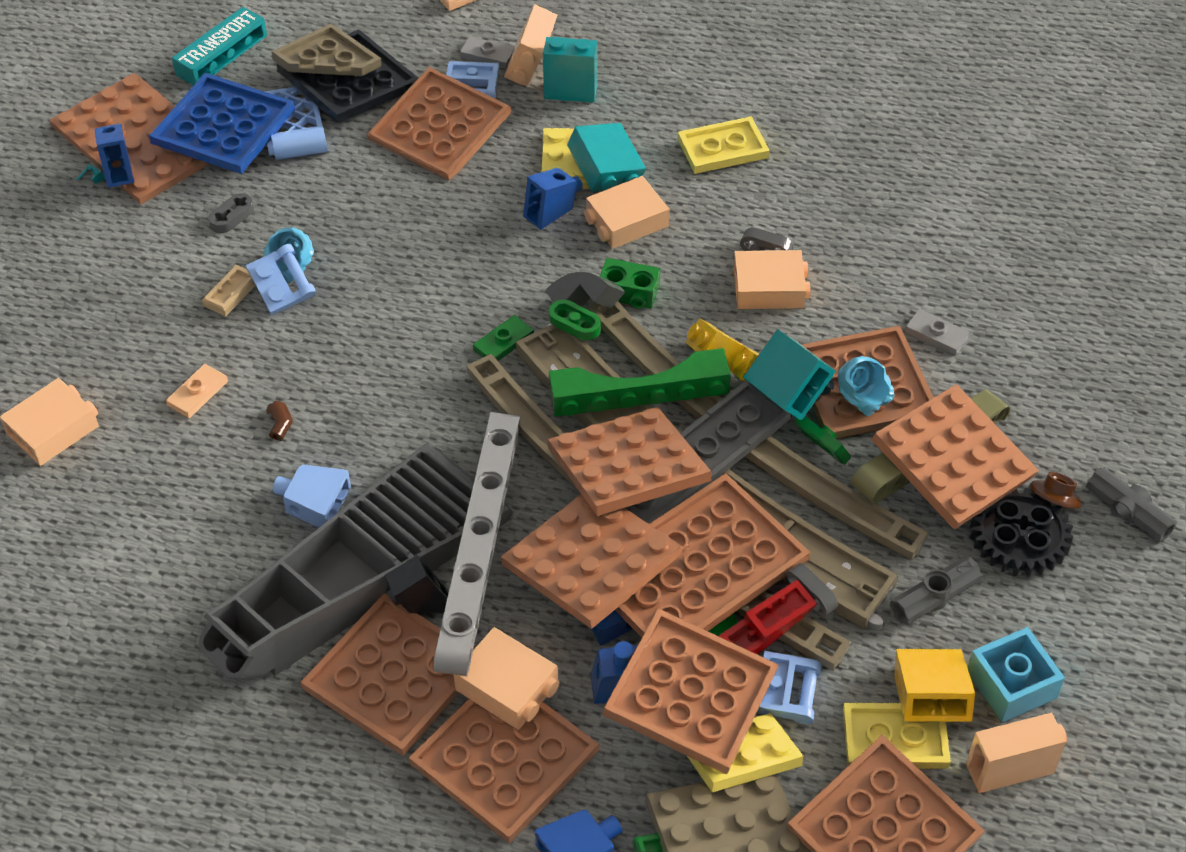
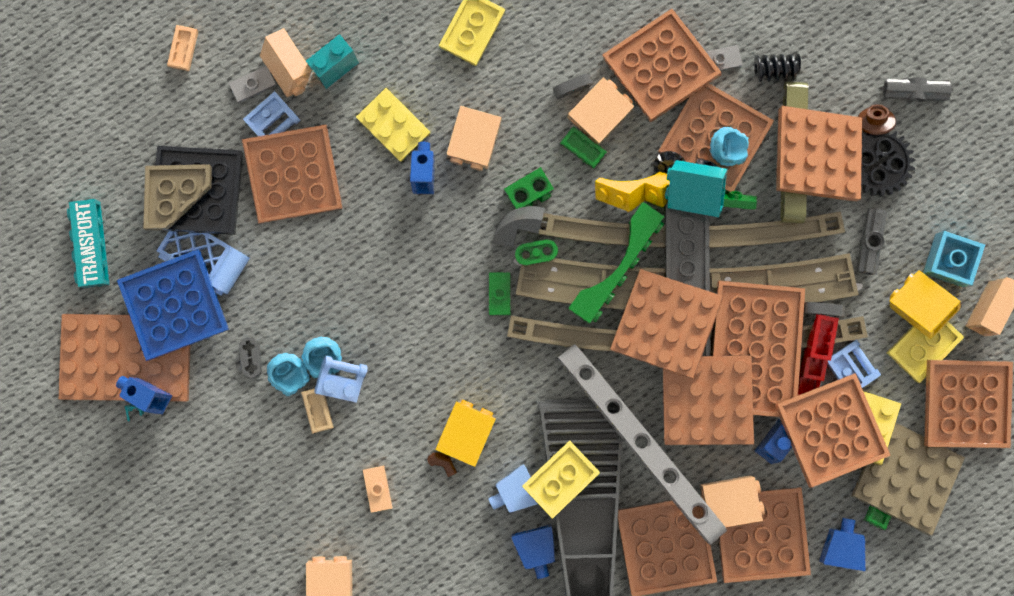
camera: 45 degrees left, 35 degrees up
(238, 245) = (287, 373): none -> medium azure hair
(261, 549) = (536, 549): none -> blue torso
(331, 410) = (466, 432): none -> yellow brick
(364, 497) = (561, 479): none -> light yellow plate
(416, 587) = (636, 495): black slope -> none
(605, 155) = (424, 110): teal brick -> none
(720, 295) = (583, 147): none -> green plate
(871, 287) = (661, 65): none -> nougat plate
(989, 375) = (777, 66): none -> black piece

